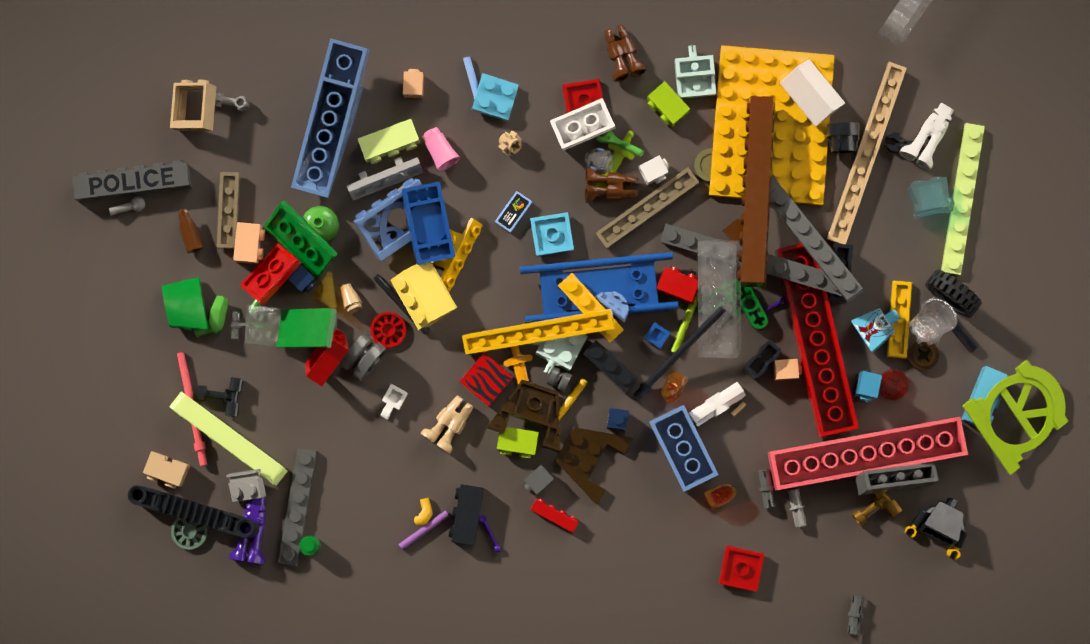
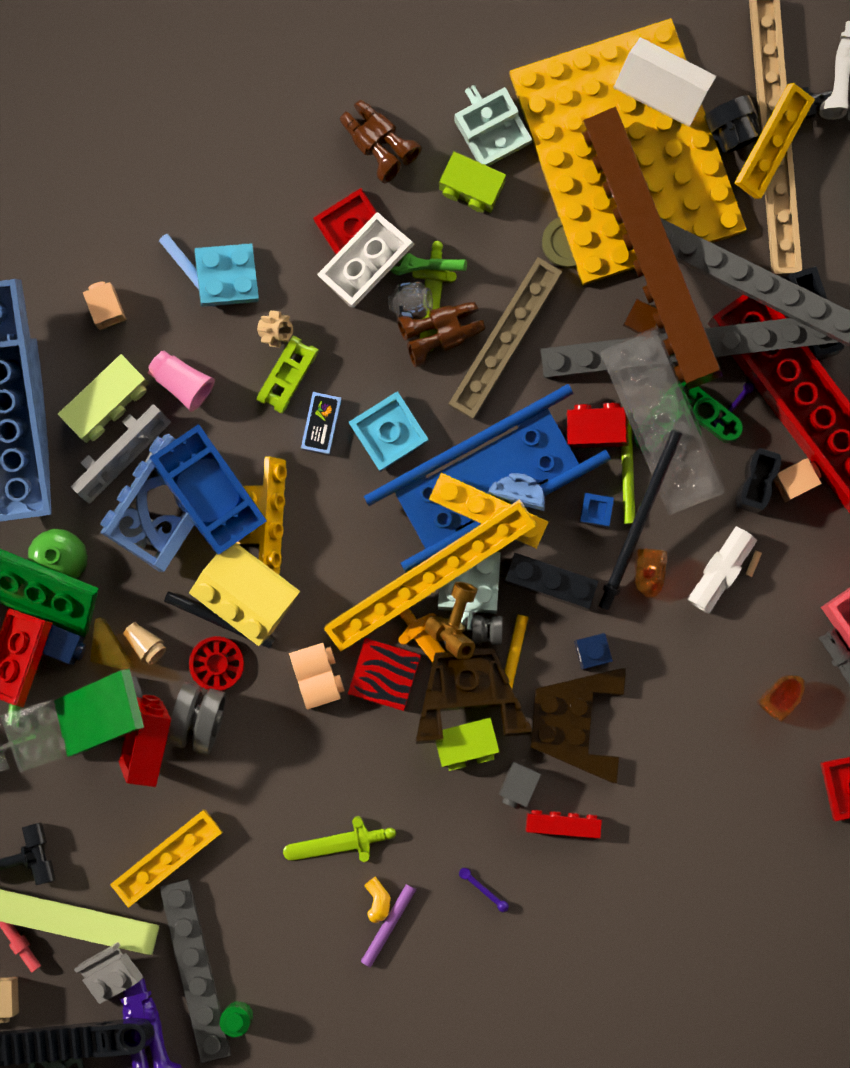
camera: 20 degrees left, 0 degrees up
(309, 432) = (166, 858): none -> yellow plate
(394, 399) = (266, 756): white plate -> none
(428, 471) = (357, 839): none -> lime sword
(444, 362) = (316, 675): none -> light nougat brick
(448, 418) = (361, 752): tan piece -> none
(466, 514) = (439, 878): black brick -> none
(506, 173) = (287, 374): none -> lime plate
(537, 369) = (451, 629): none -> pearl gold bar
(654, 170) = (492, 282): white brick -> none
(683, 448) = (703, 651): medium blue brick -> none
(862, 158) = (774, 141): none -> yellow plate

